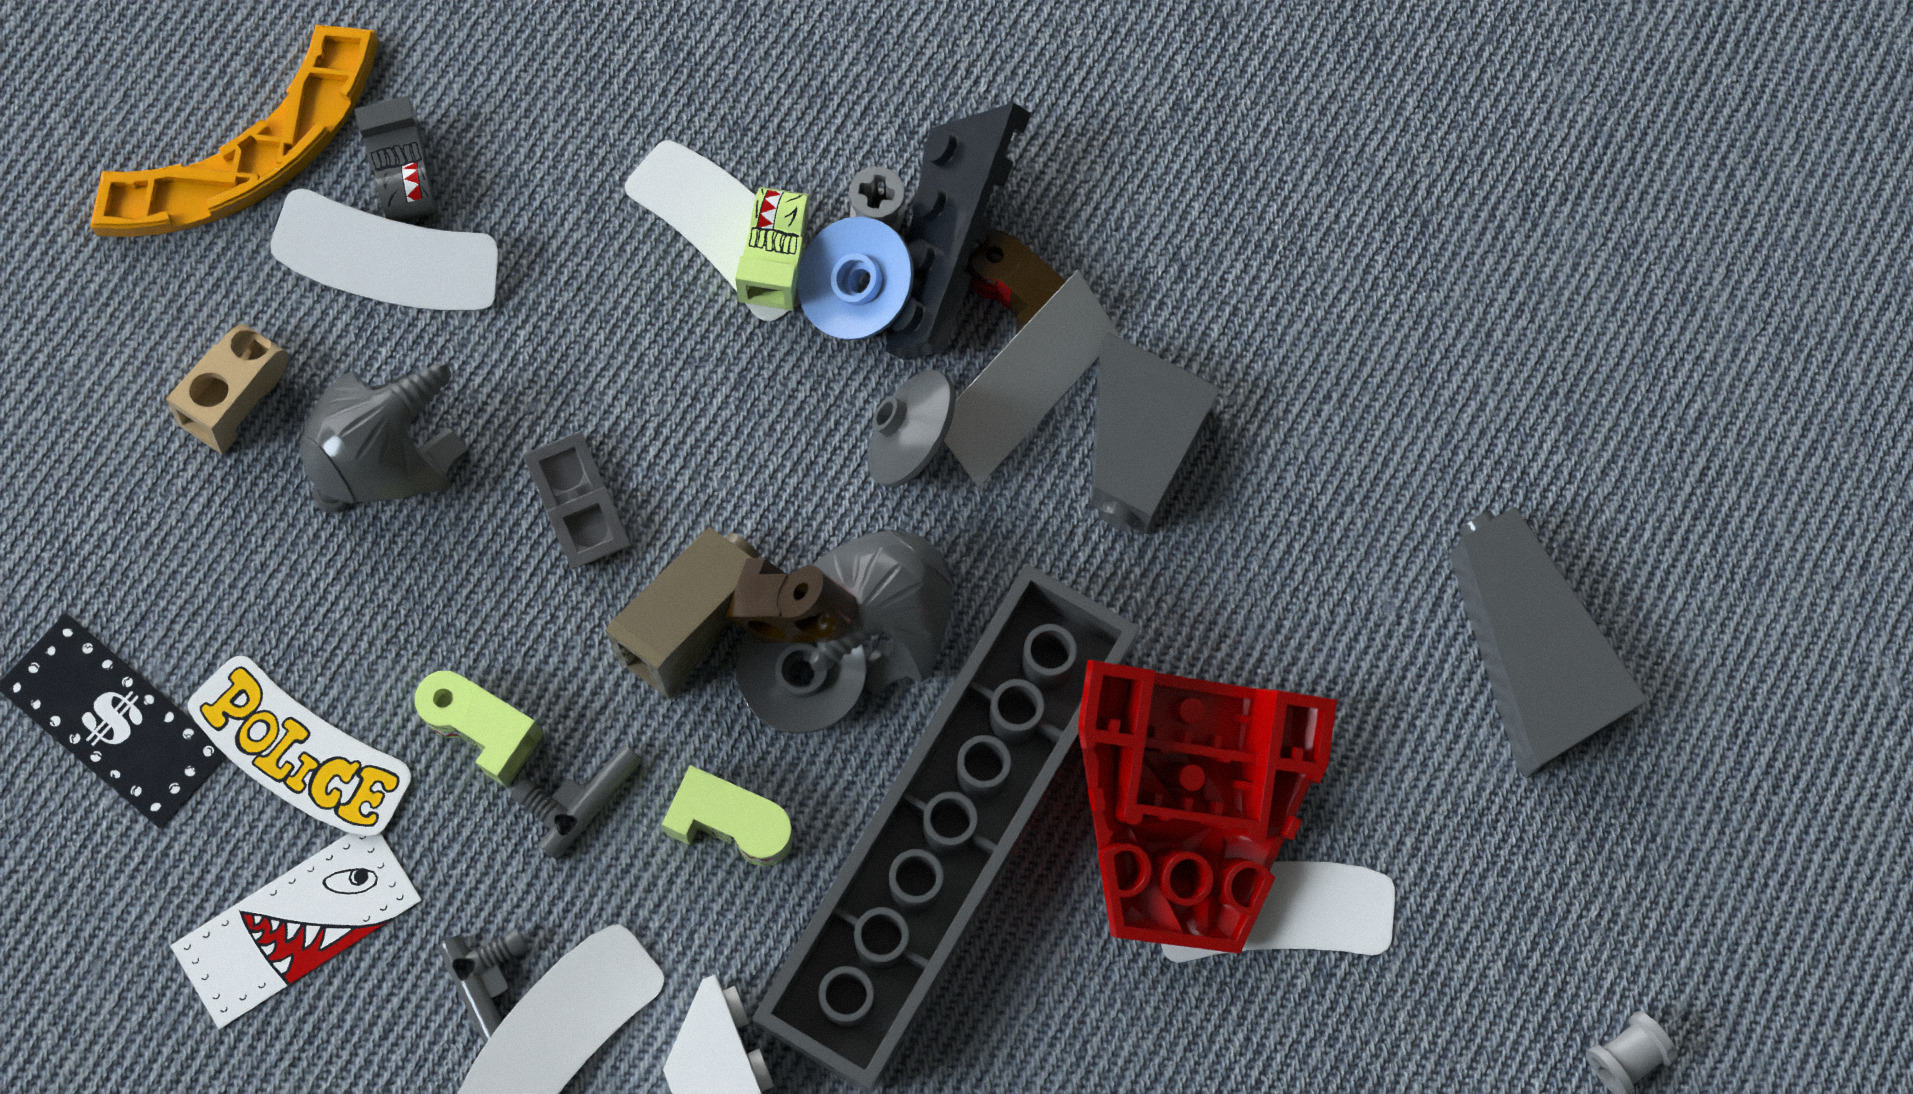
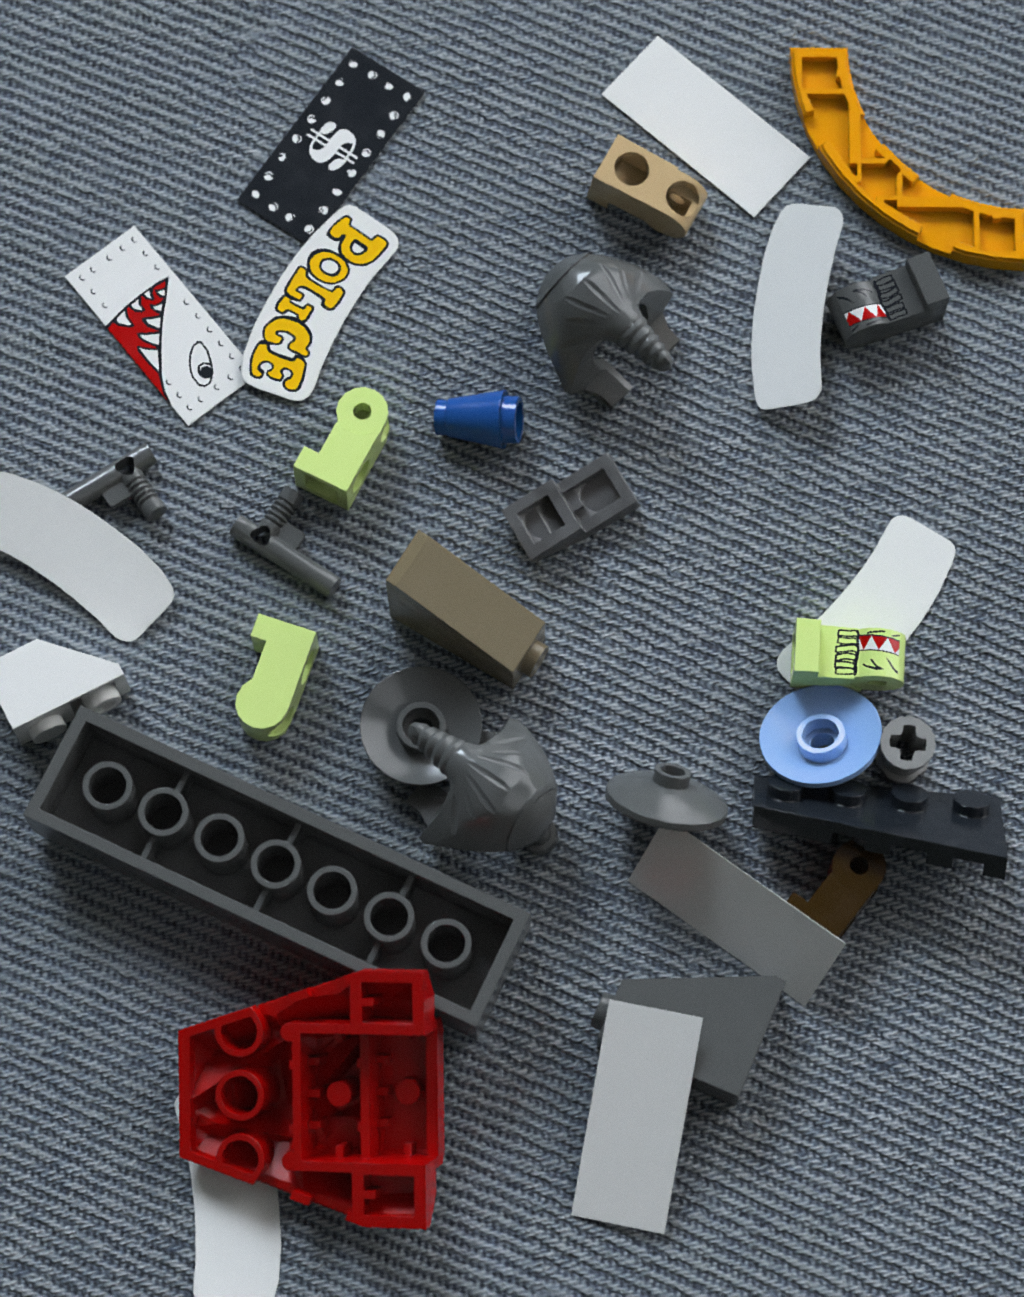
camera: 90 degrees right, 0 degrees up
(160, 327) = (706, 126): none -> white sticker
(464, 580) = (481, 418): none -> blue cone
(790, 607) = (468, 697): dark brown leg -> none
(1228, 490) = (636, 1116): none -> white sticker

